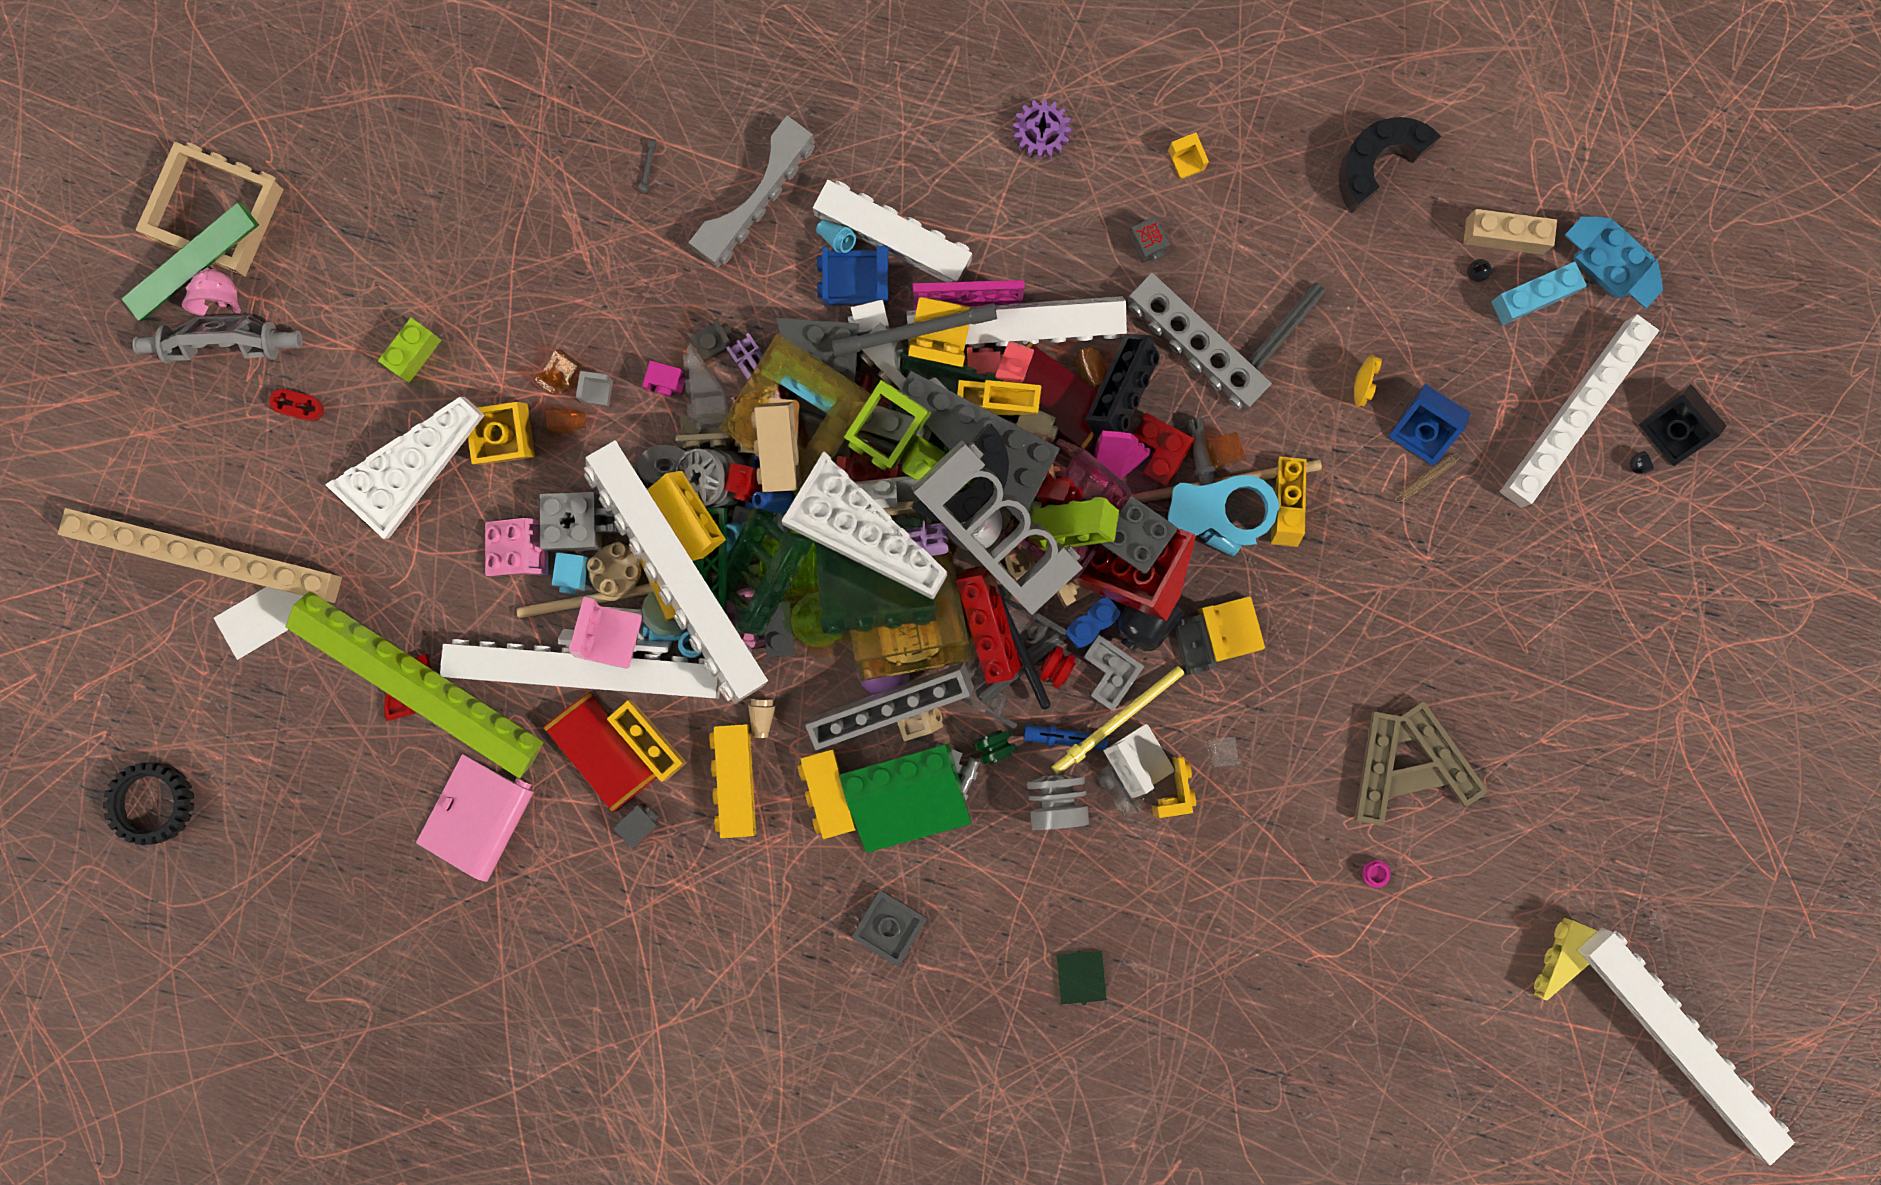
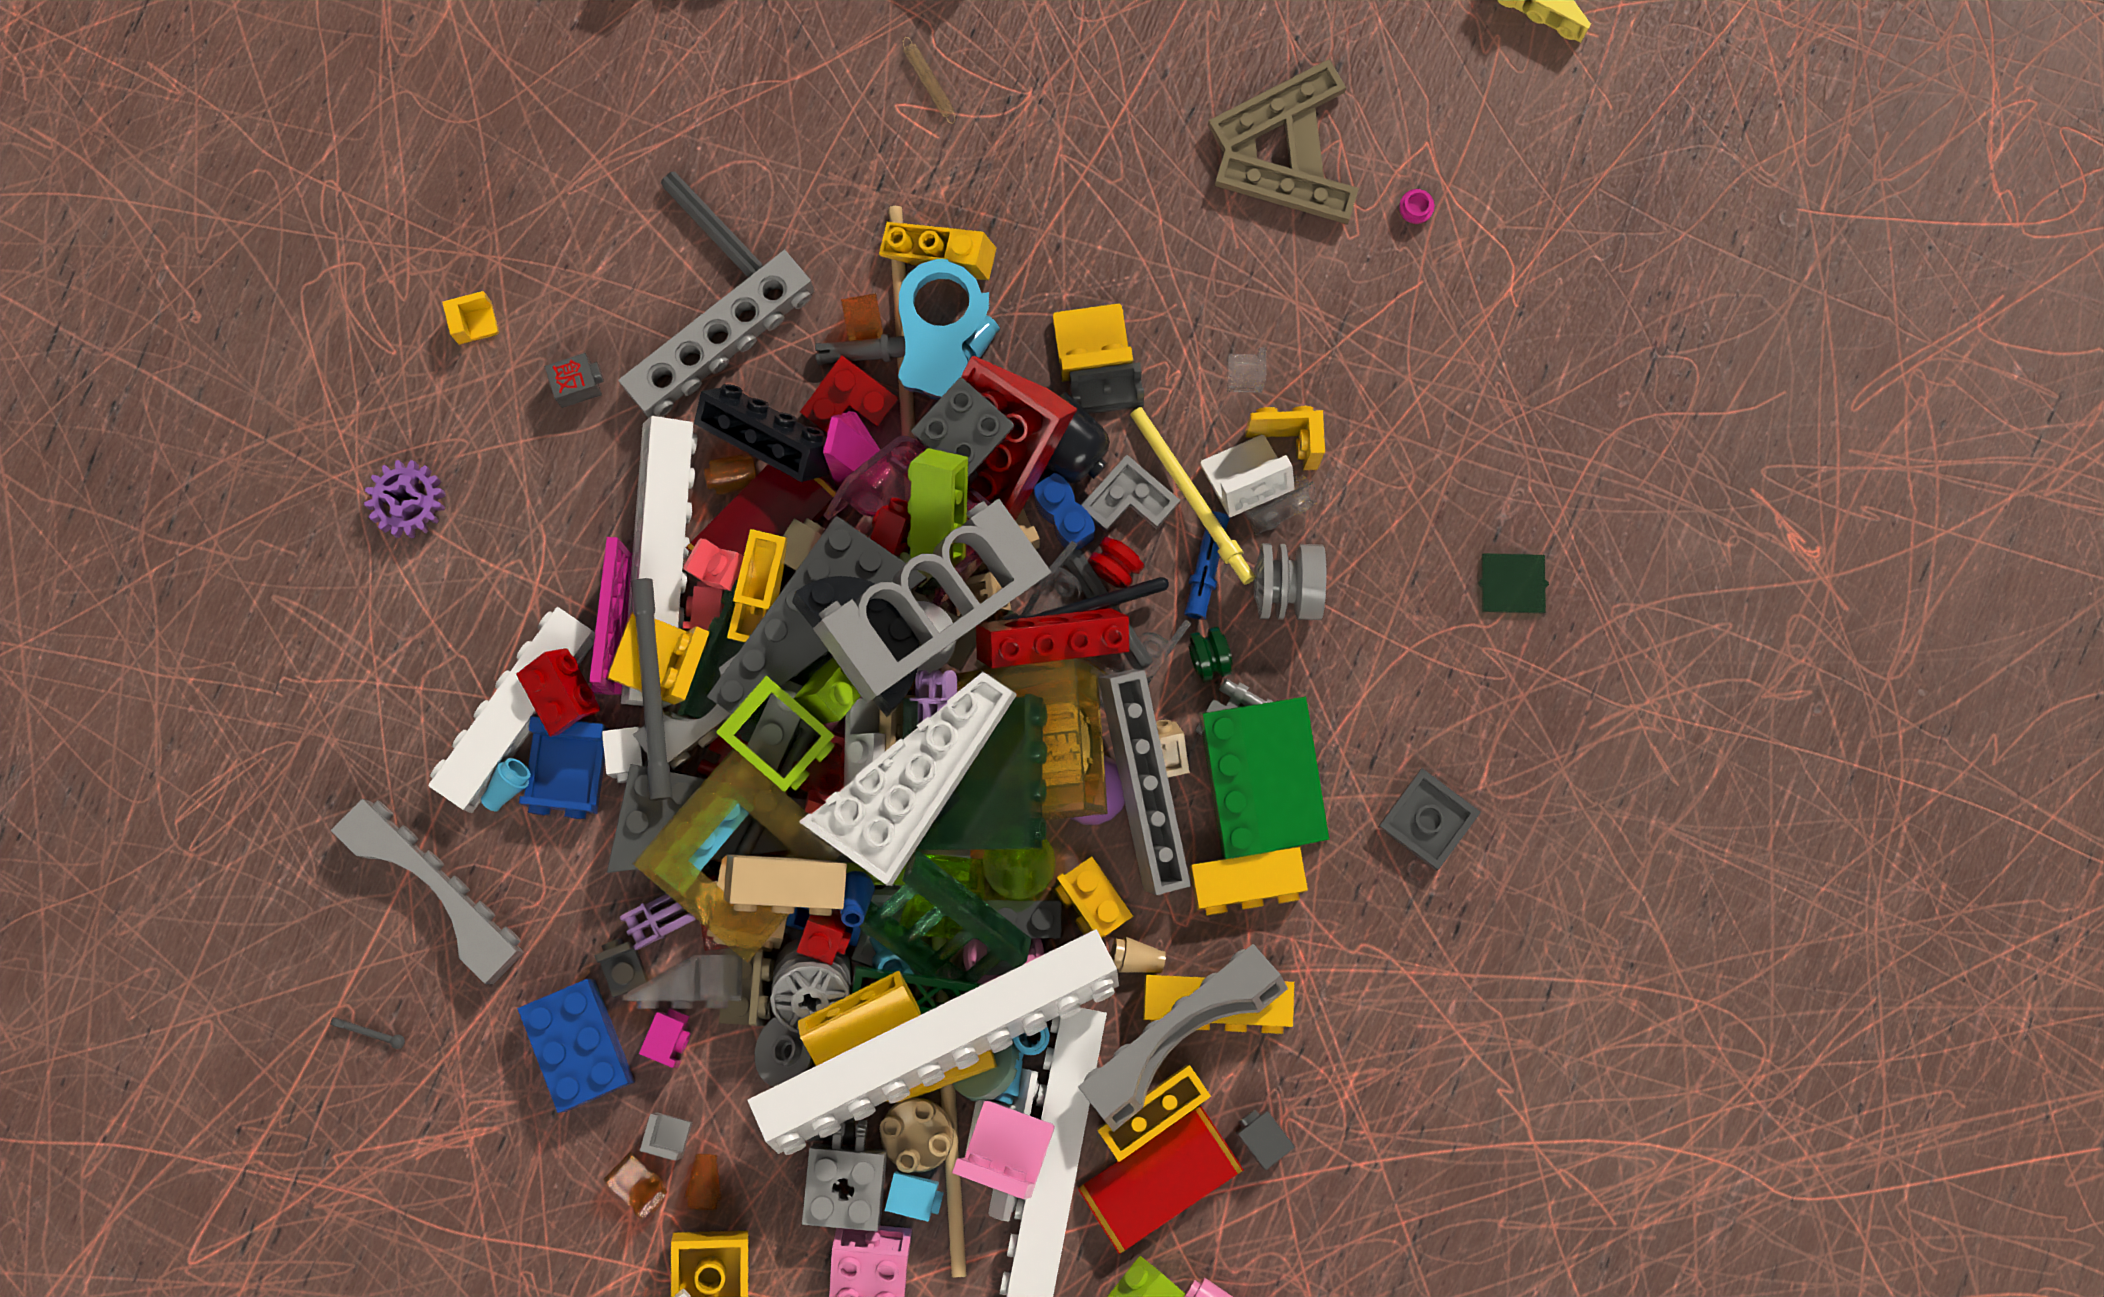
camera: 85 degrees left, 5 degrees down
(652, 315) = (576, 1045): none -> blue brick
(663, 715) = (1240, 987): none -> light grey arch
(799, 678) = (1092, 898): none -> yellow bracket
(907, 262) = (557, 690): none -> red bracket
(1363, 385) = (799, 137): yellow dish -> none
(1386, 137) = (486, 66): black brick -> none
(1430, 424) = (863, 67): blue slope -> none

